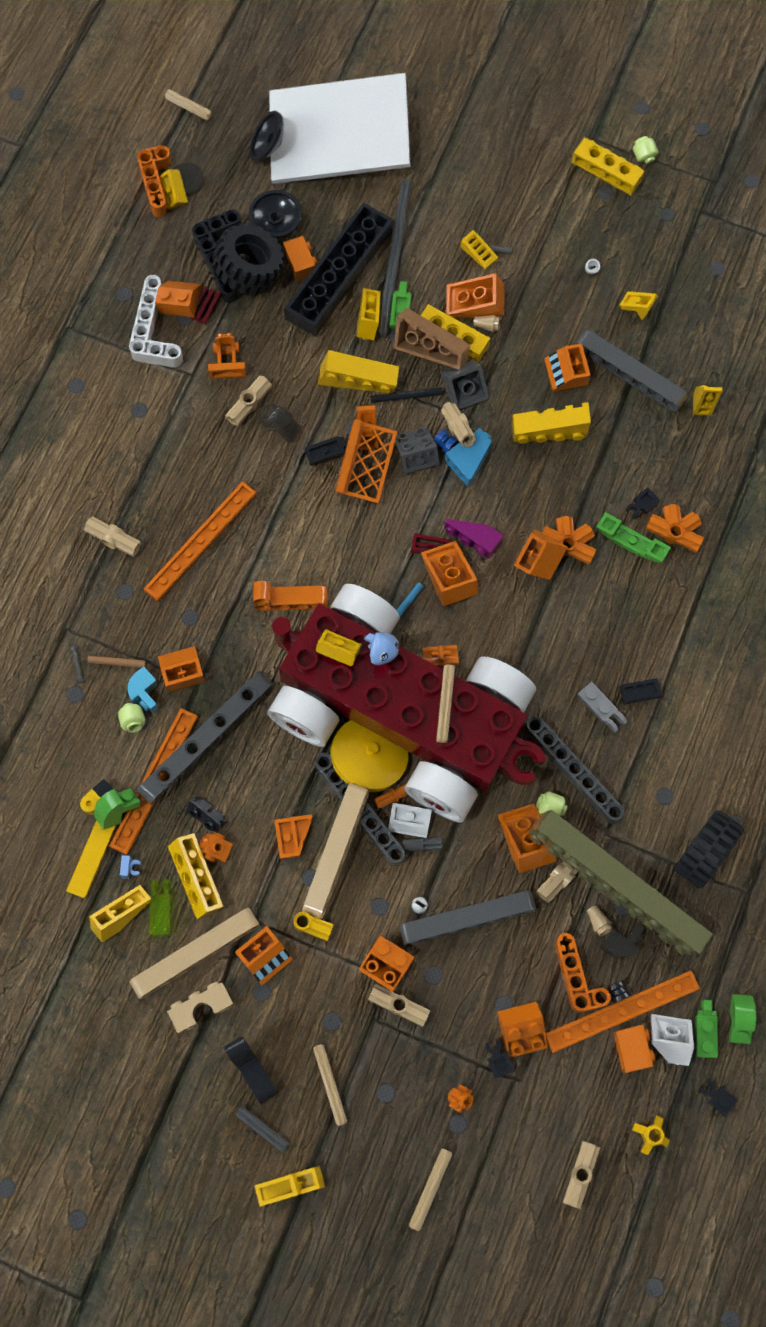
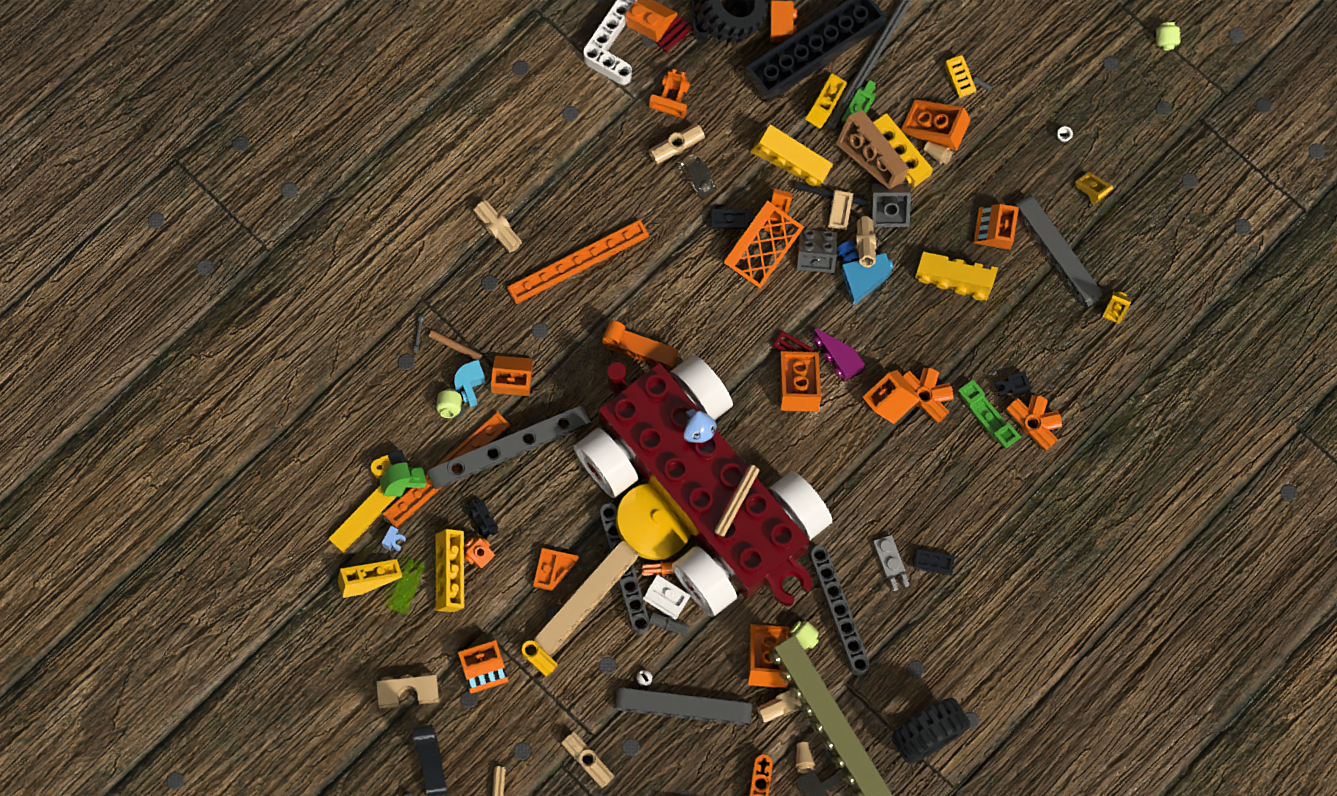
camera: 20 degrees right, 0 degrees up
(194, 953) = (422, 640): tan beam -> none
(338, 647) = (659, 411): yellow slope -> none
(386, 963) = (591, 718): orange slope -> none
(409, 599) = (750, 392): dark azure bar -> none
(422, 406) = (840, 210): none -> tan tile
(441, 655) = (758, 456): orange hips -> none
(599, 167) = (1136, 62): yellow brick -> none

